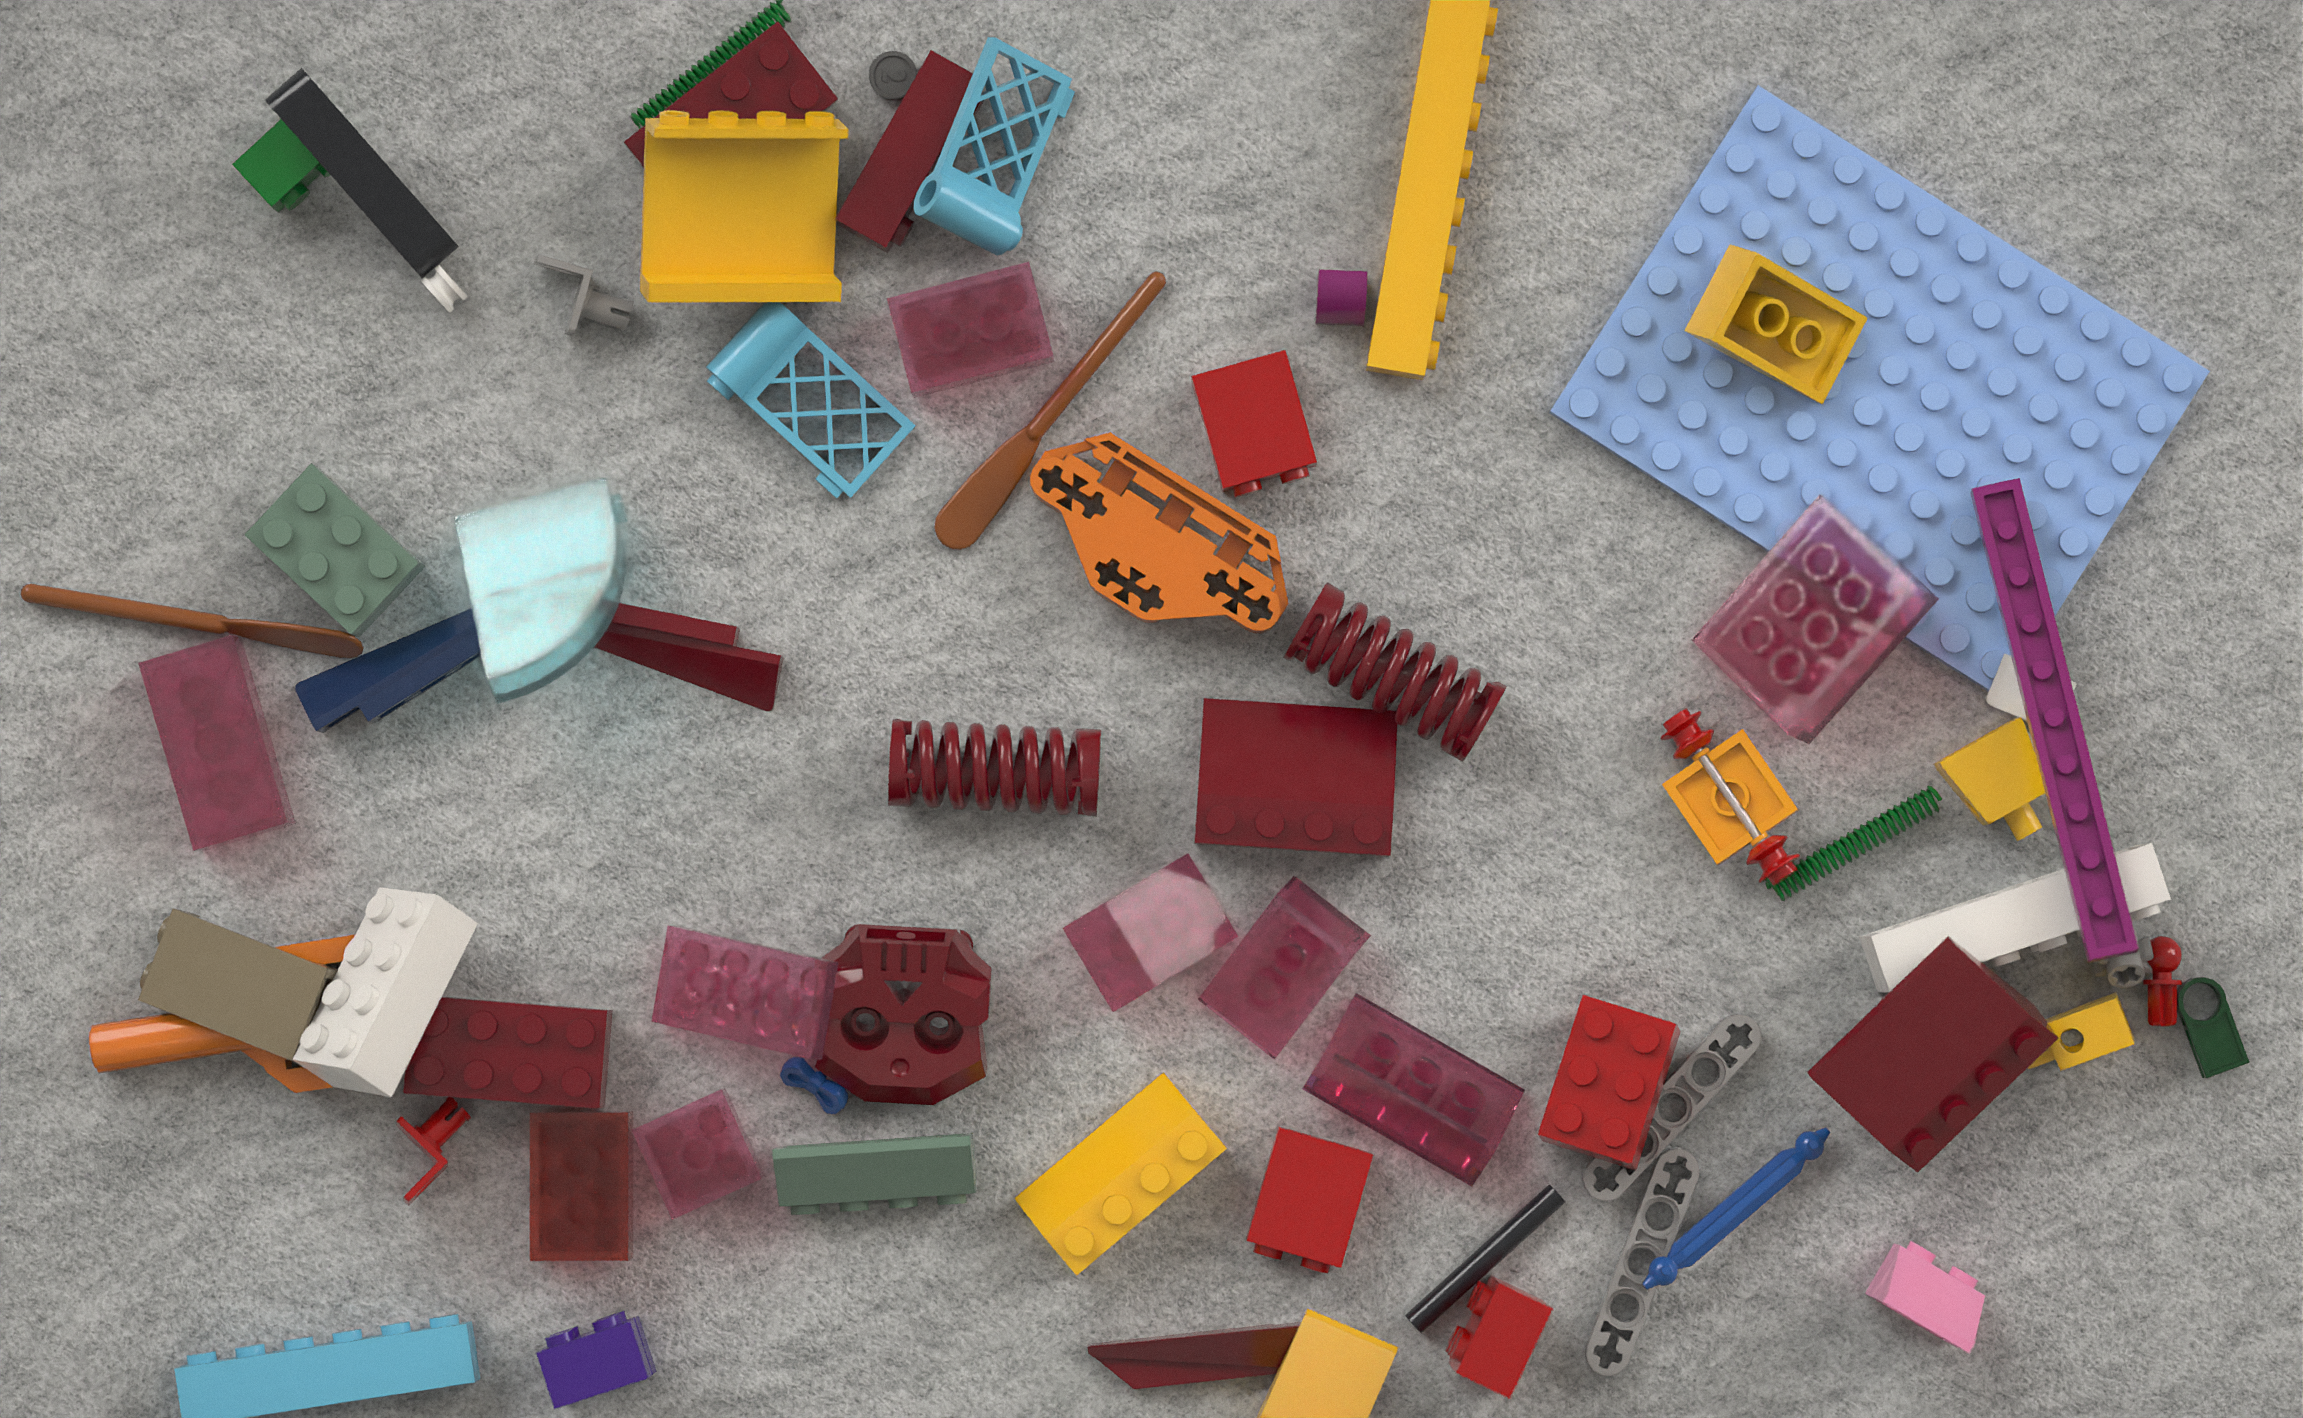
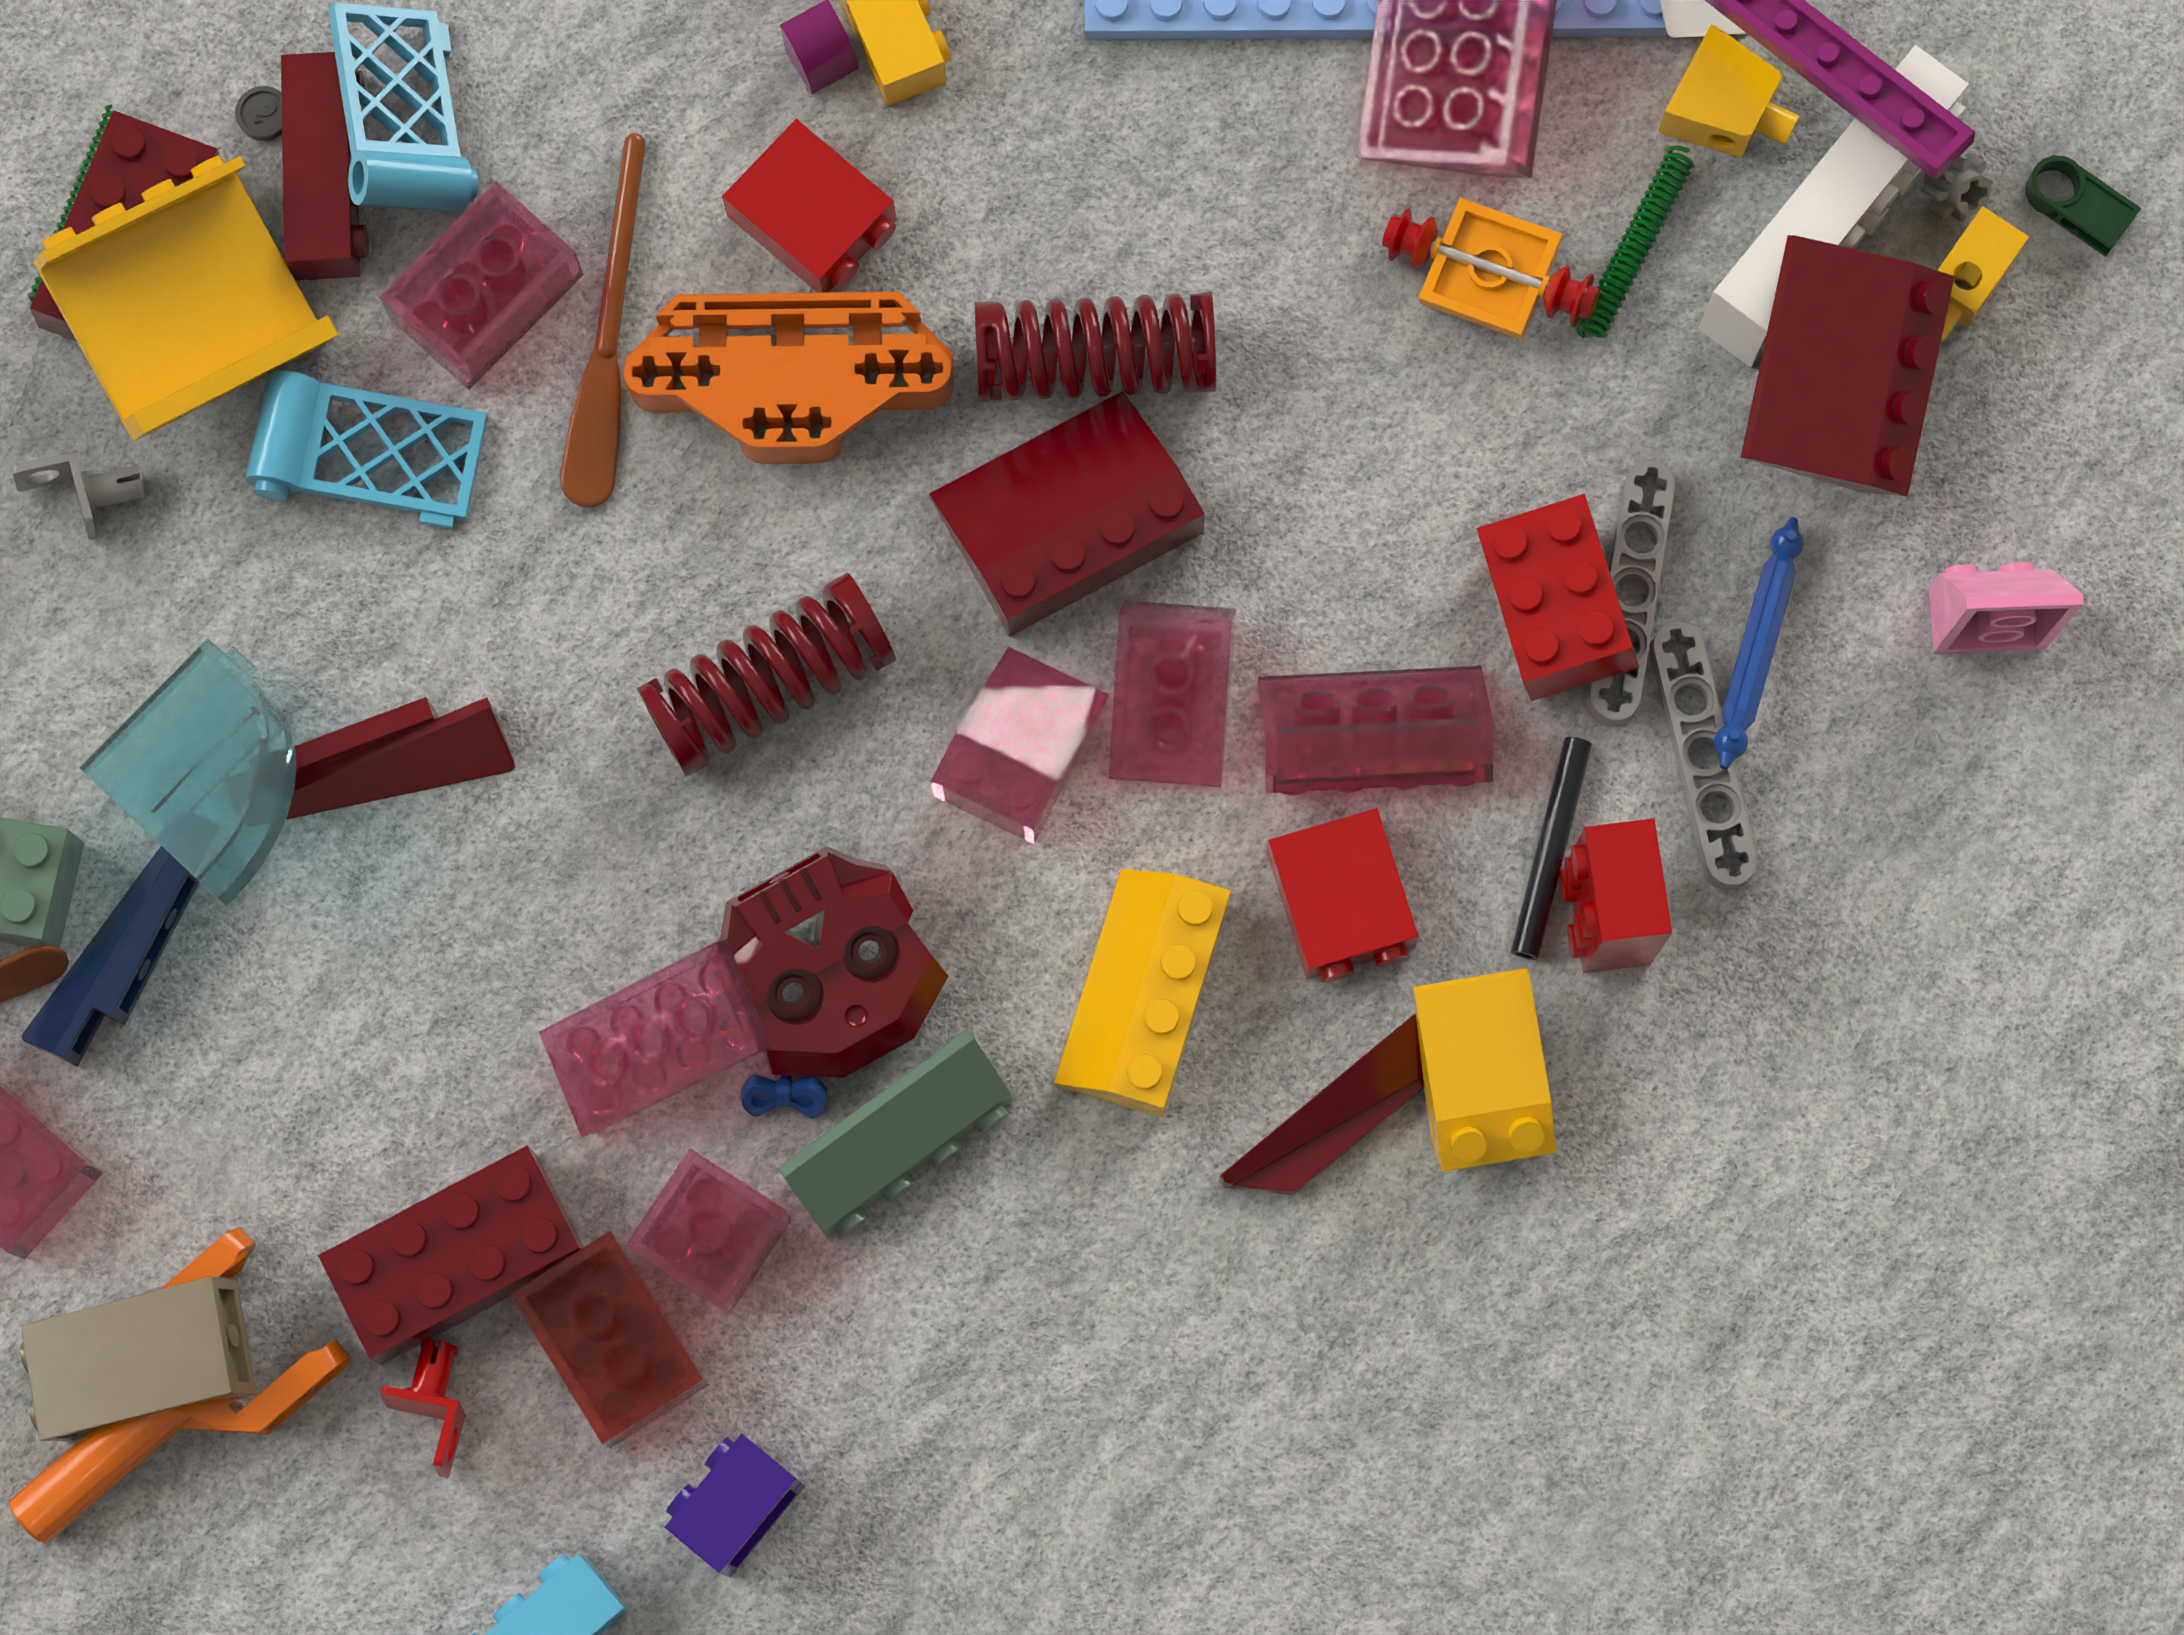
camera: 30 degrees left, 10 degrees down
(385, 991) = (285, 1264): white brick -> none
(2161, 988) = (2011, 190): red axle -> none

